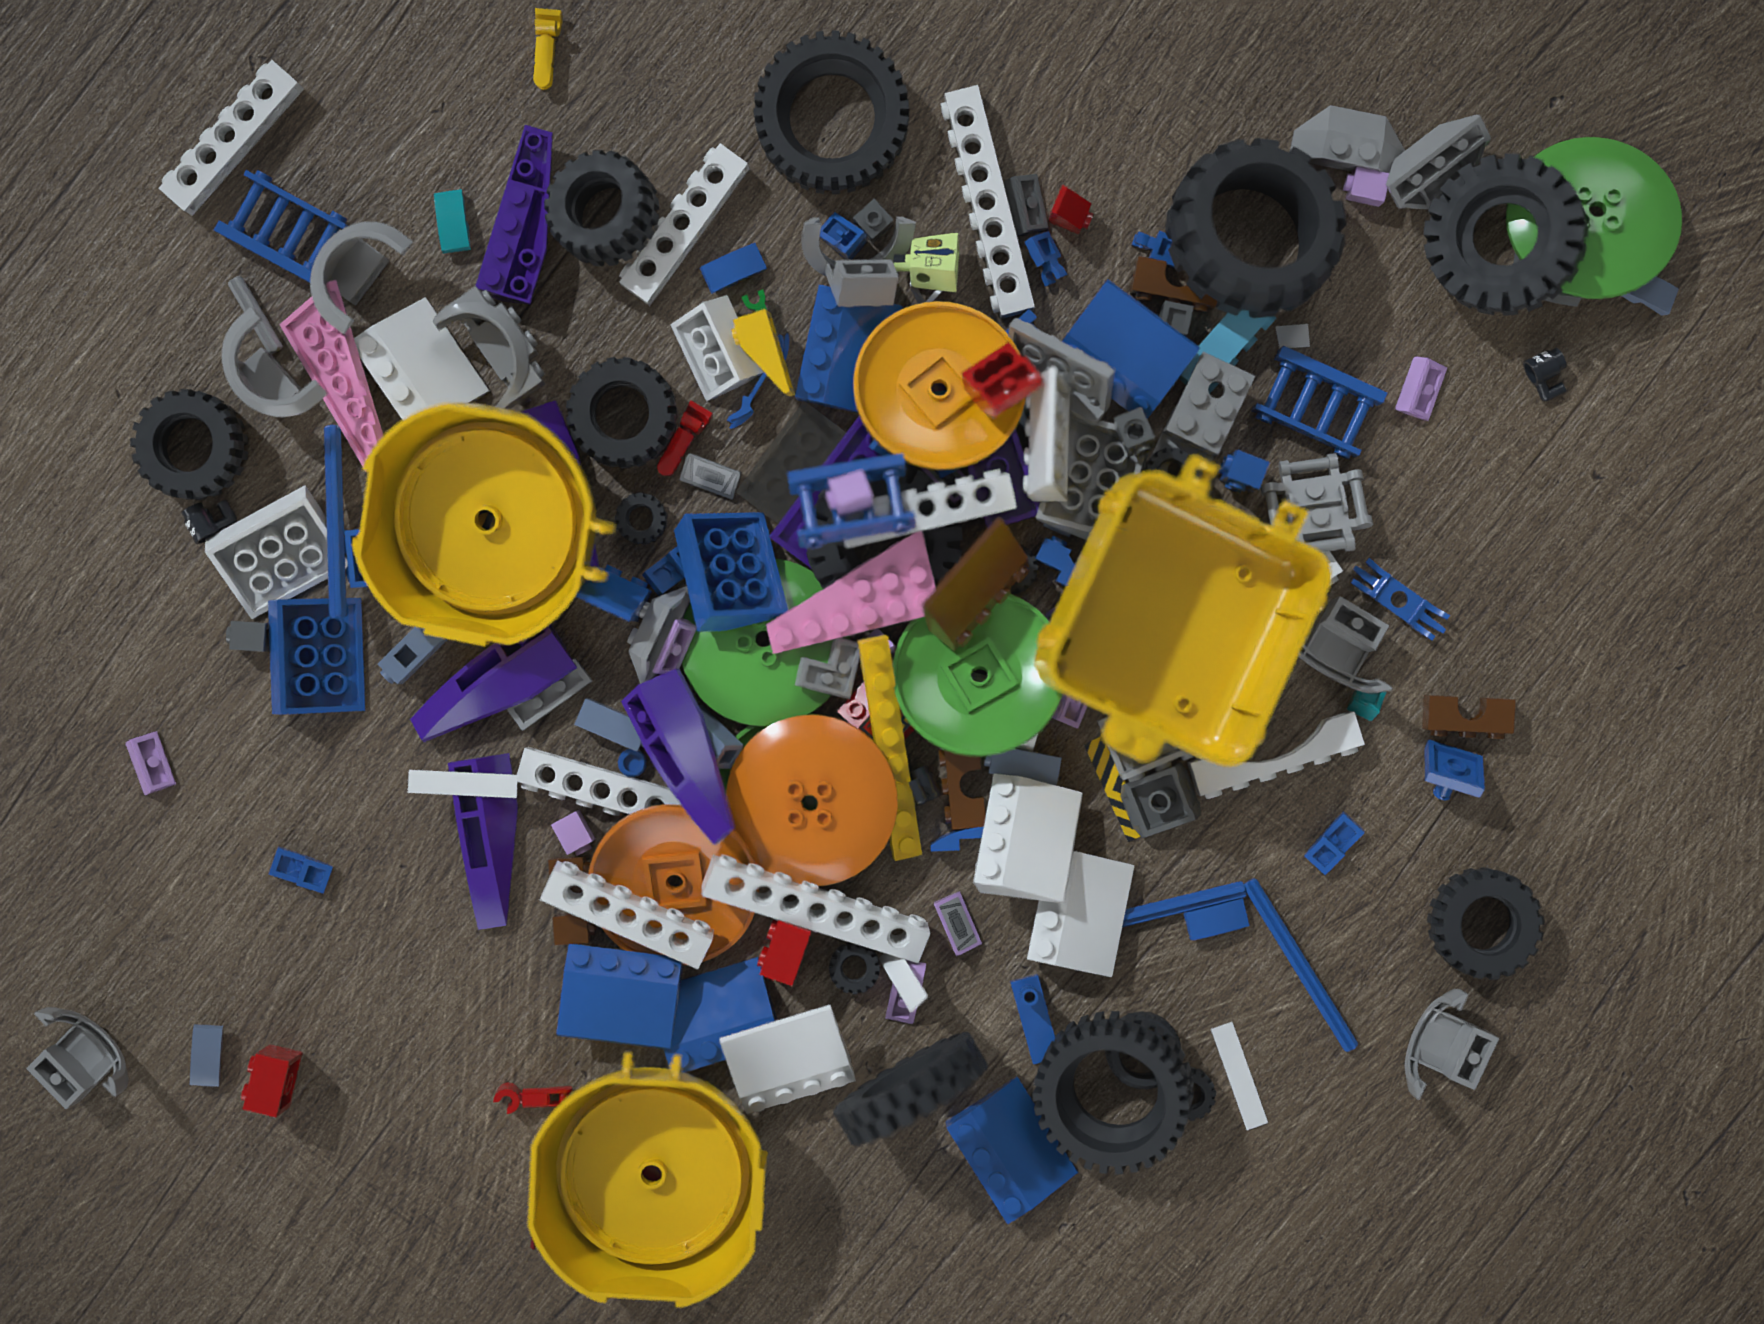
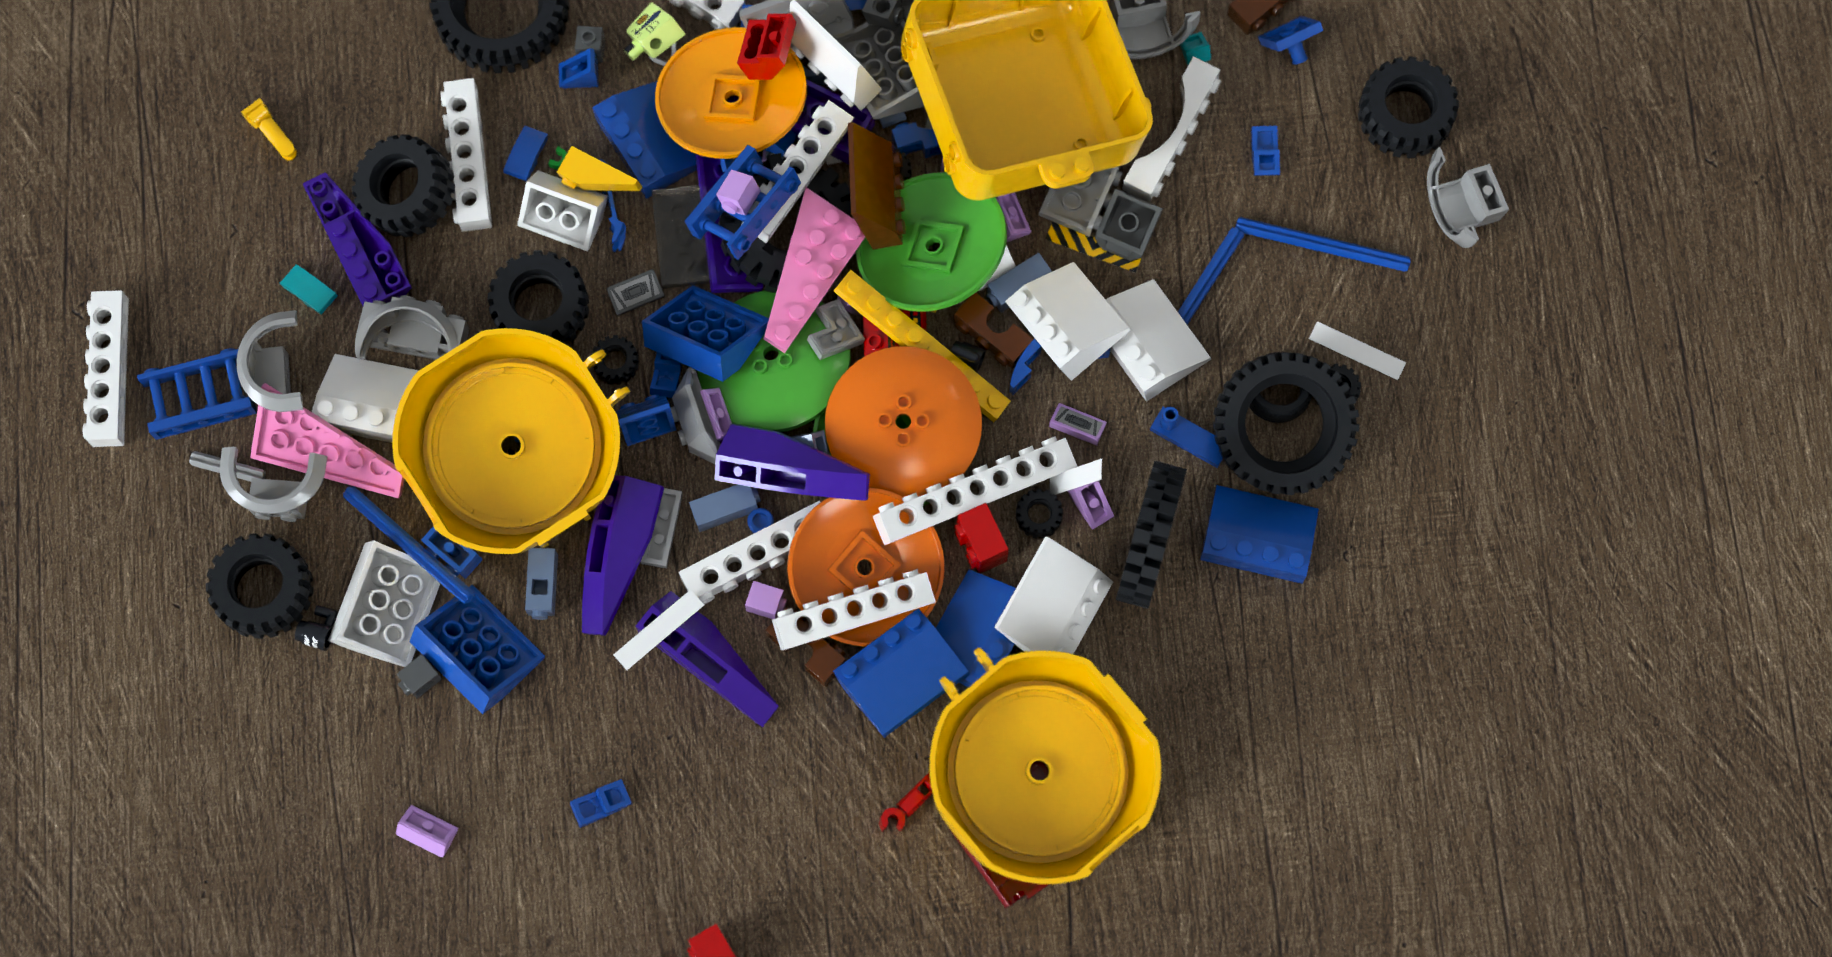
camera: 45 degrees left, 15 degrees down
(693, 420) = (590, 270): red piece -> none
(859, 281) = (613, 79): light grey piece -> none
(1216, 919) = (1240, 265): blue slope -> none

